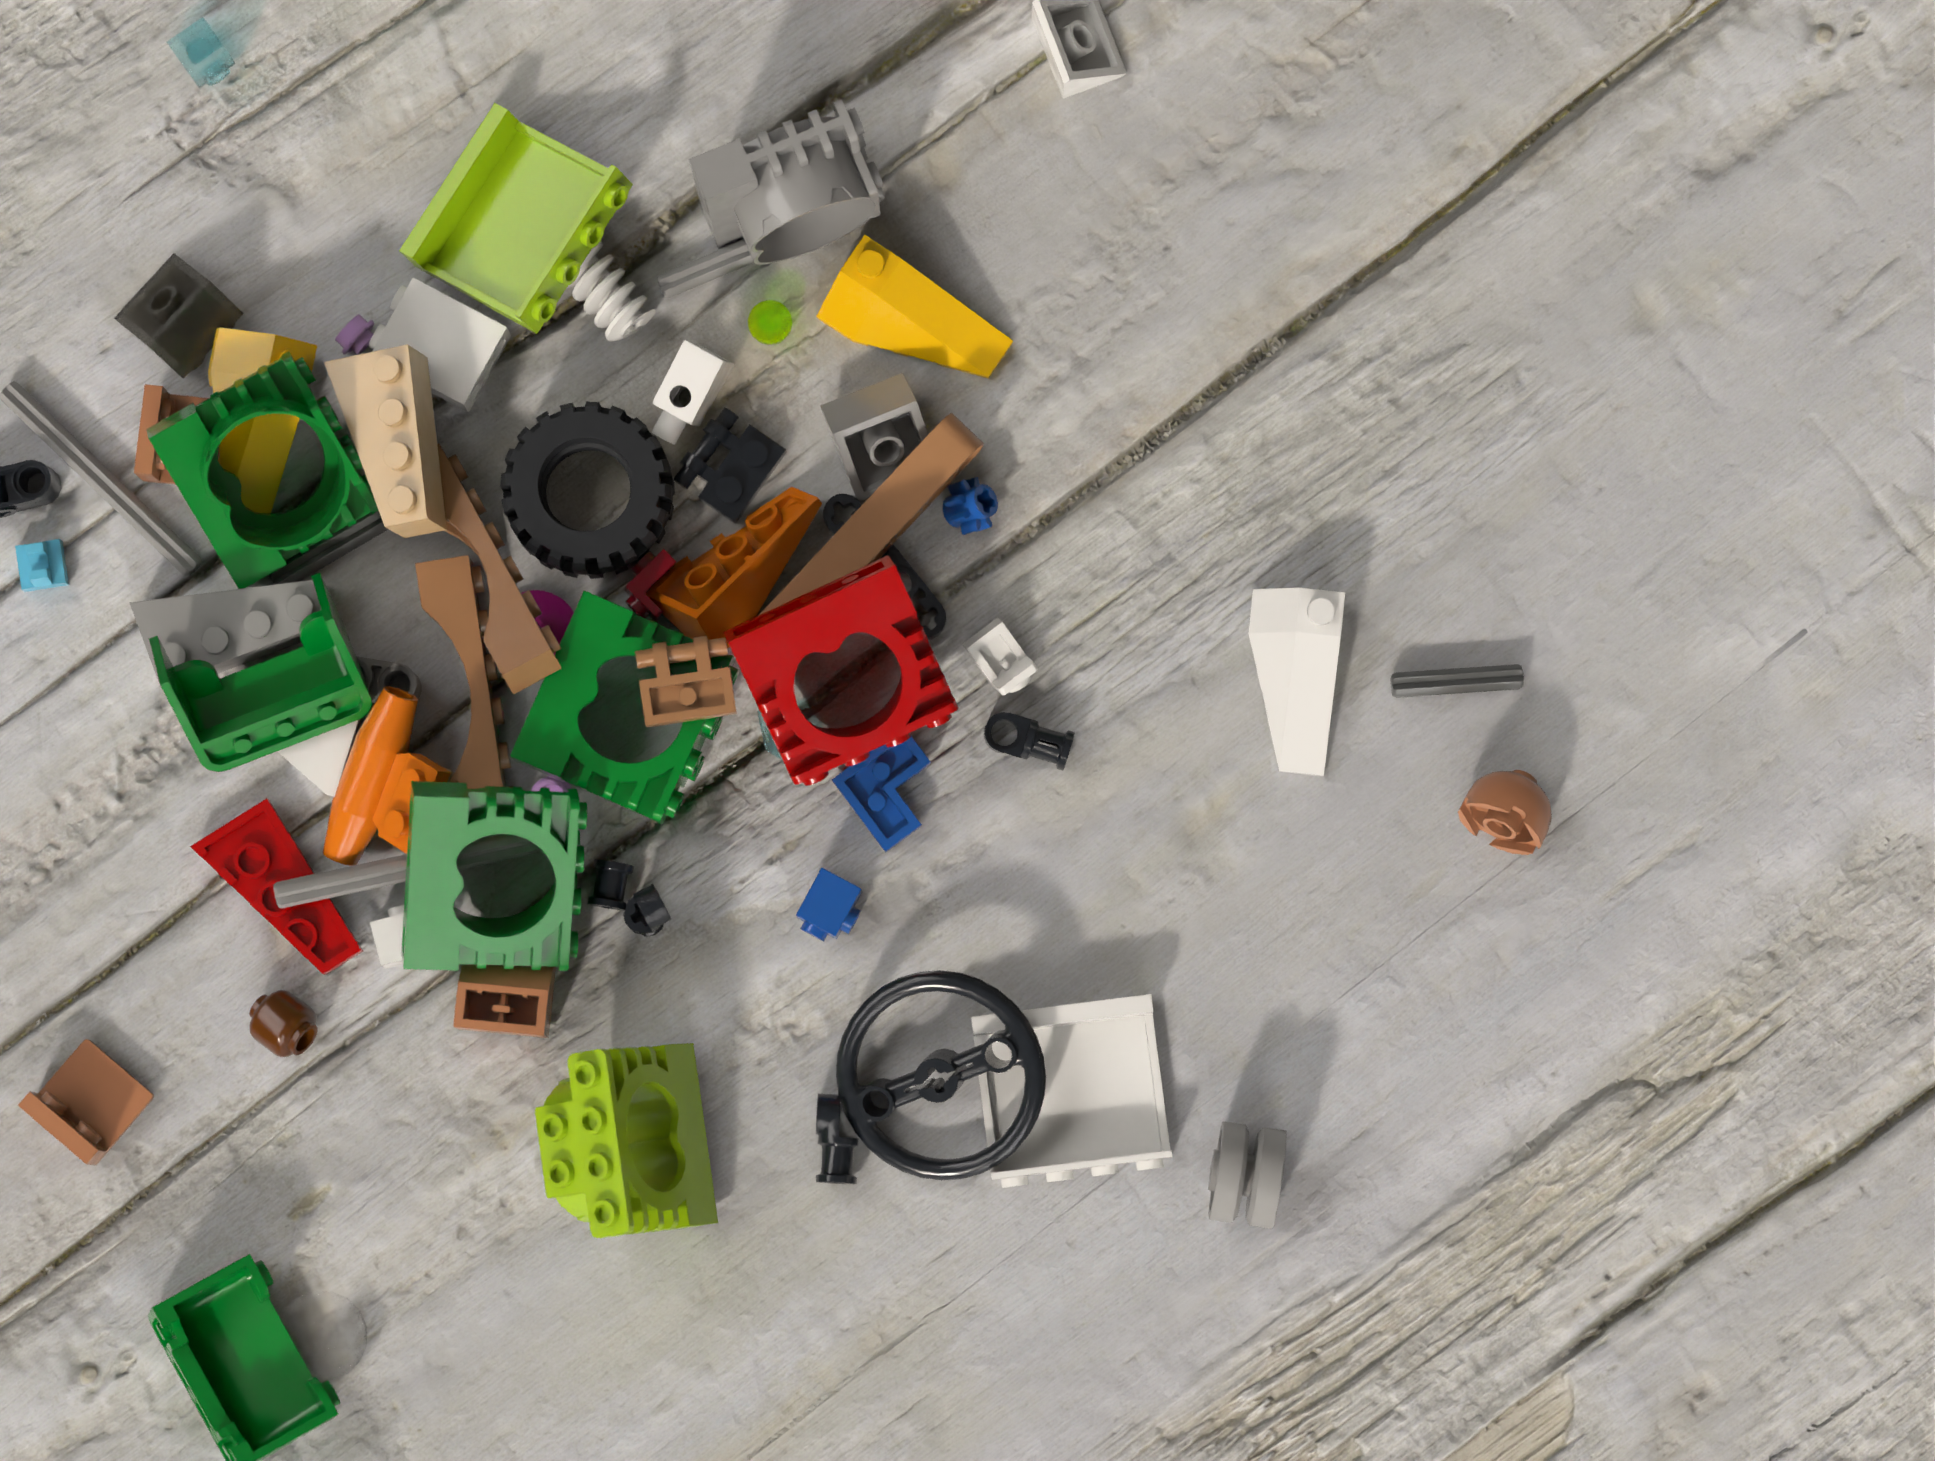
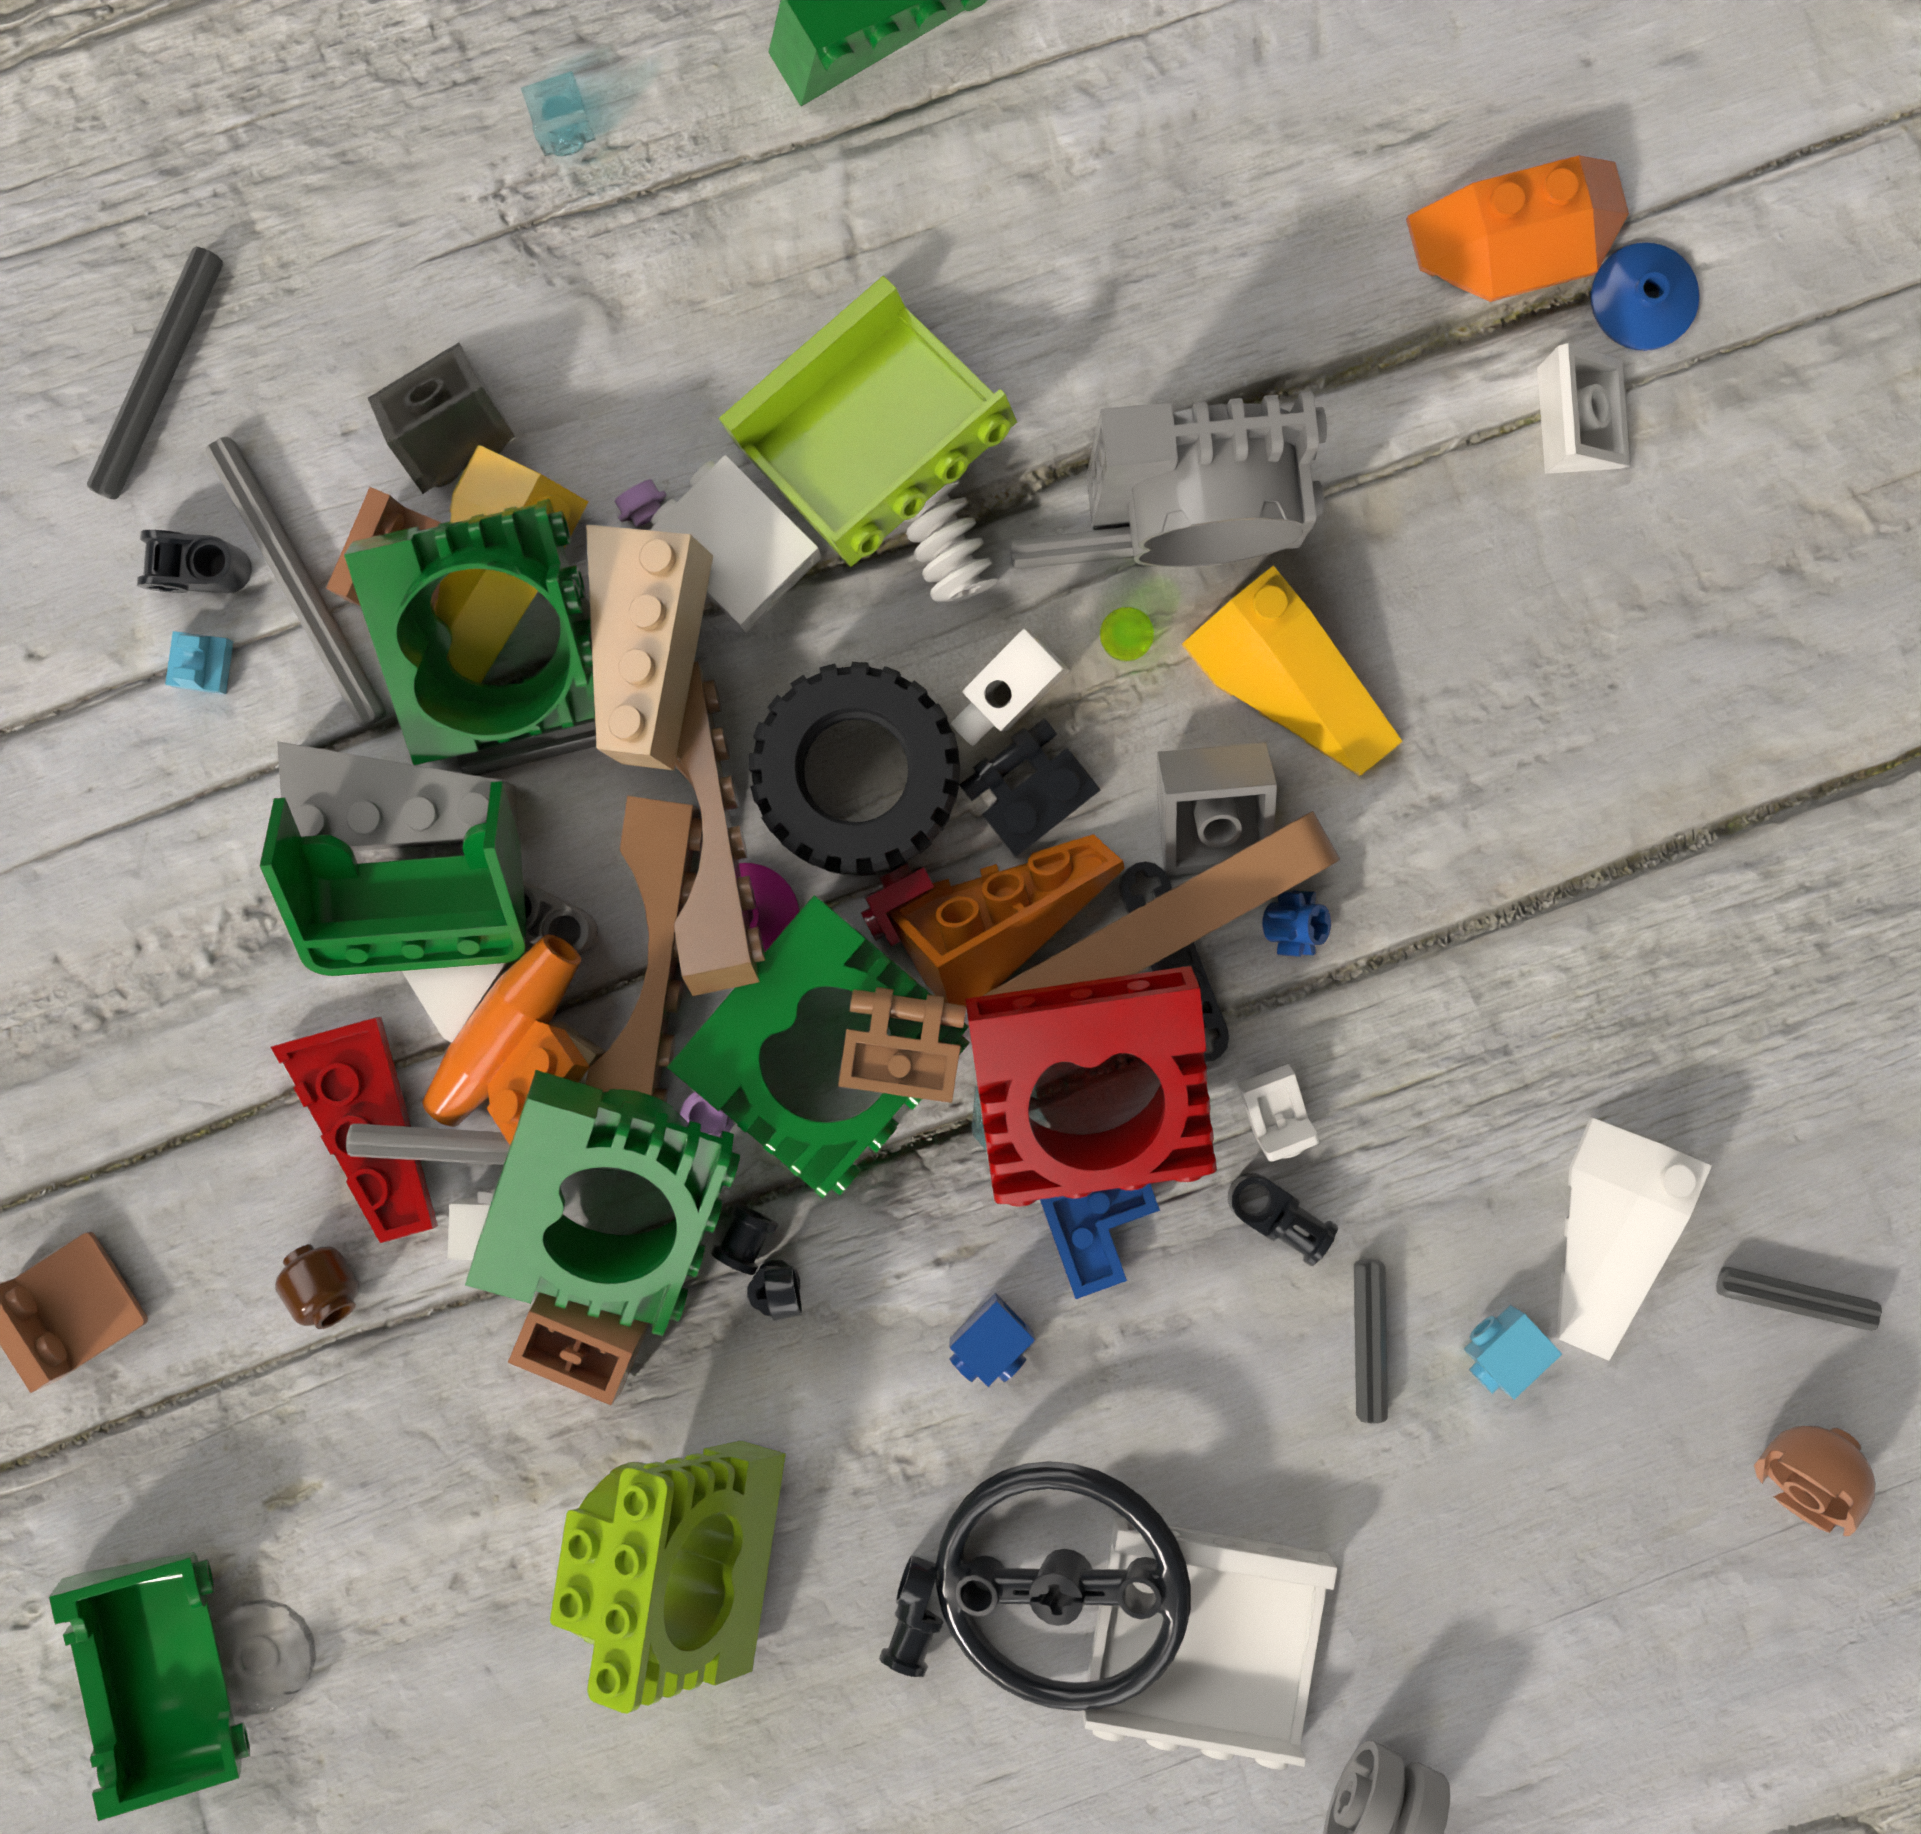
camera: 15 degrees right, 5 degrees up
(1130, 816) = (1370, 1341): none -> dark grey axle
(1238, 789) = (1509, 1352): none -> medium azure brick

